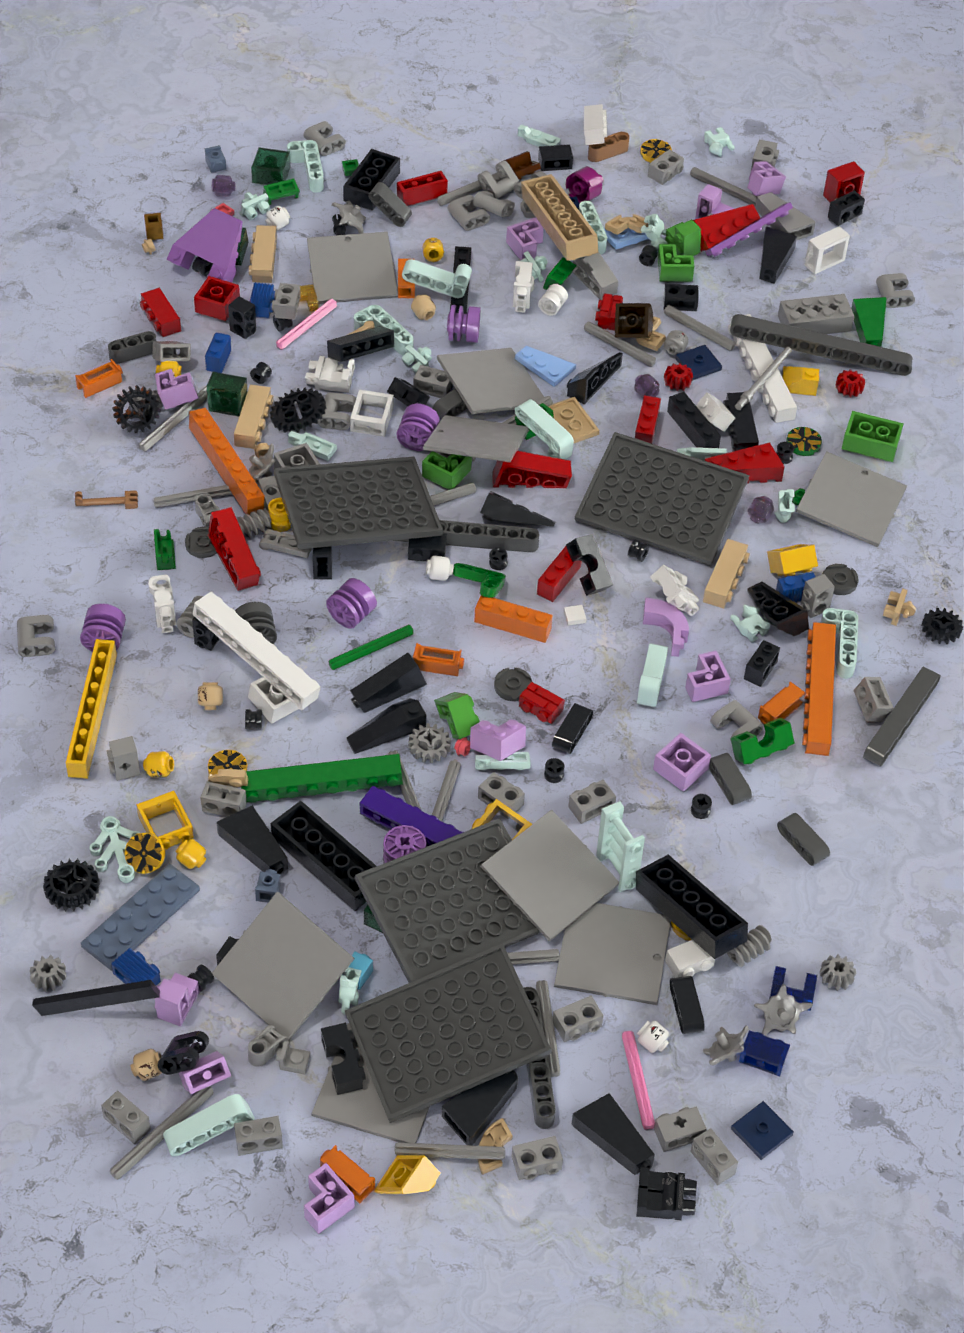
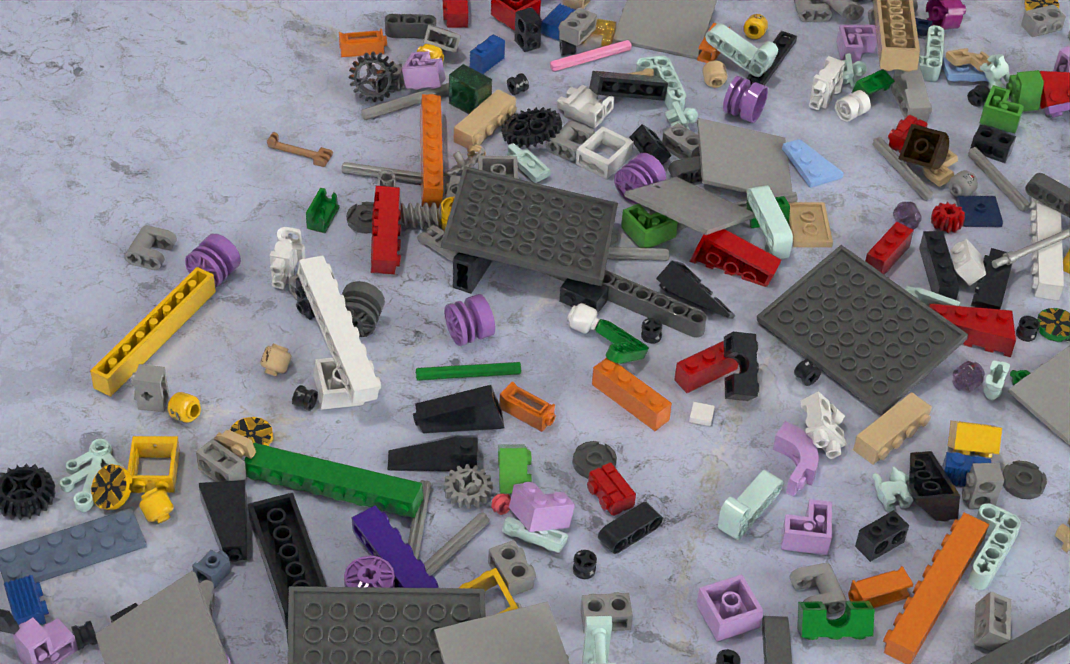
camera: 25 degrees right, 5 degrees down
(589, 381) = (855, 190): black wedge -> none

